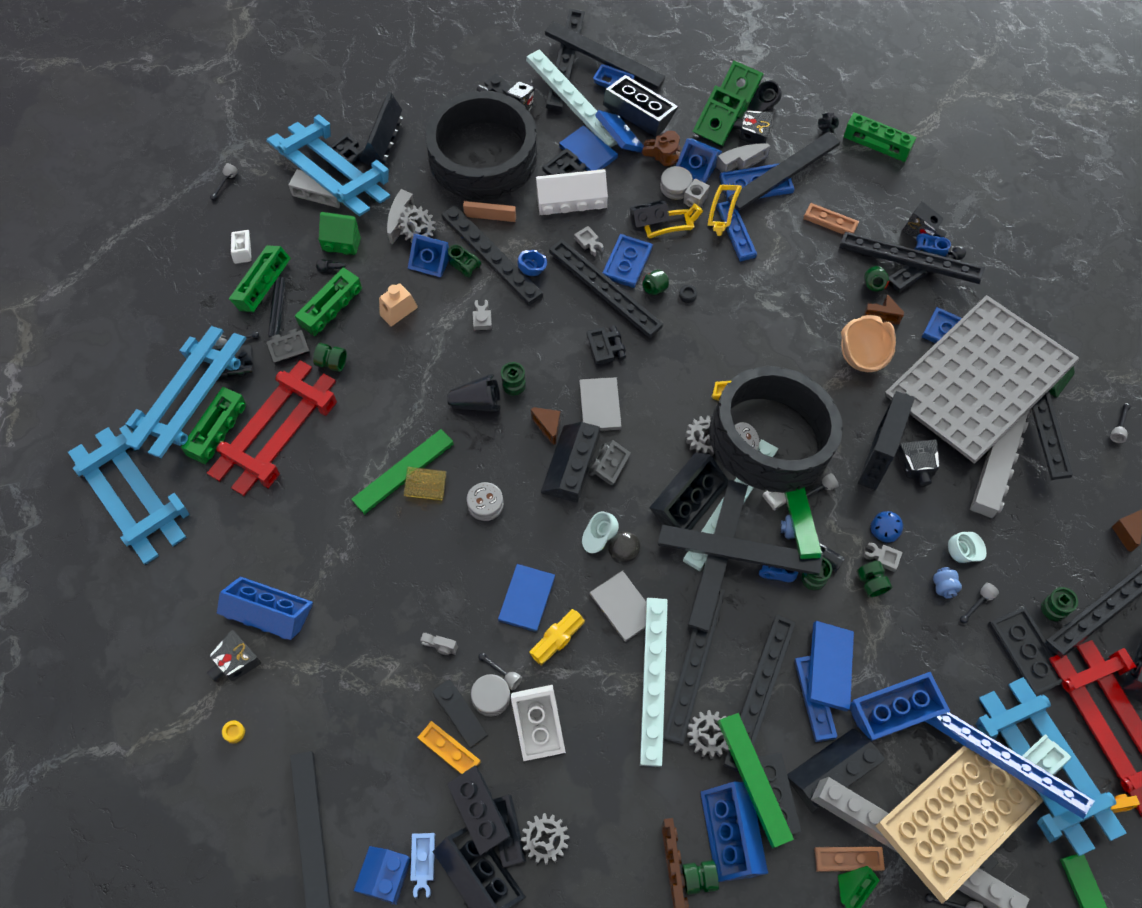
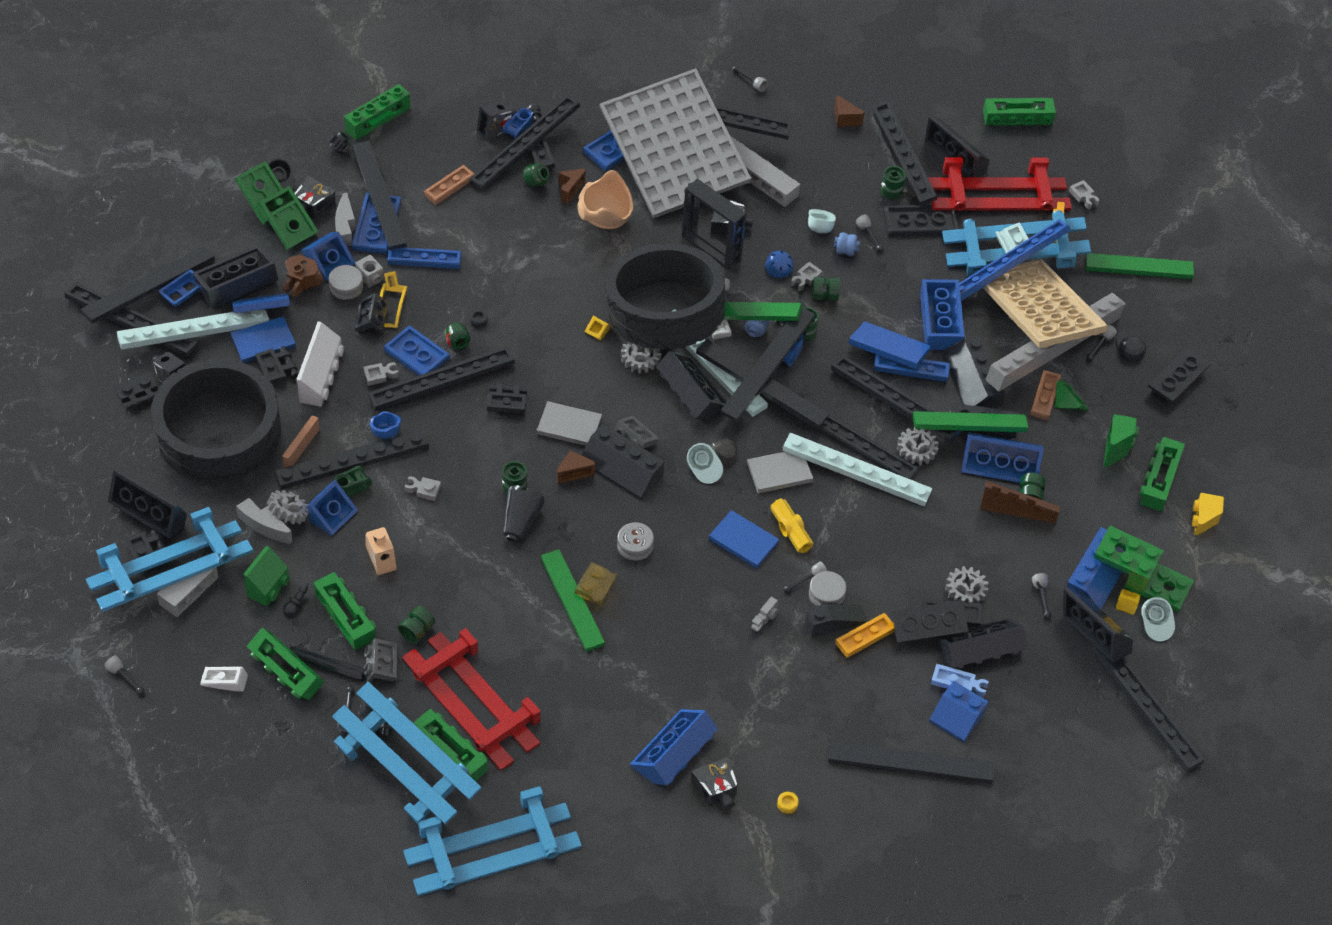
camera: 75 degrees left, 10 degrees down
(538, 722) = (863, 561): white slope -> none
(719, 227) = (413, 266): yellow sword -> none

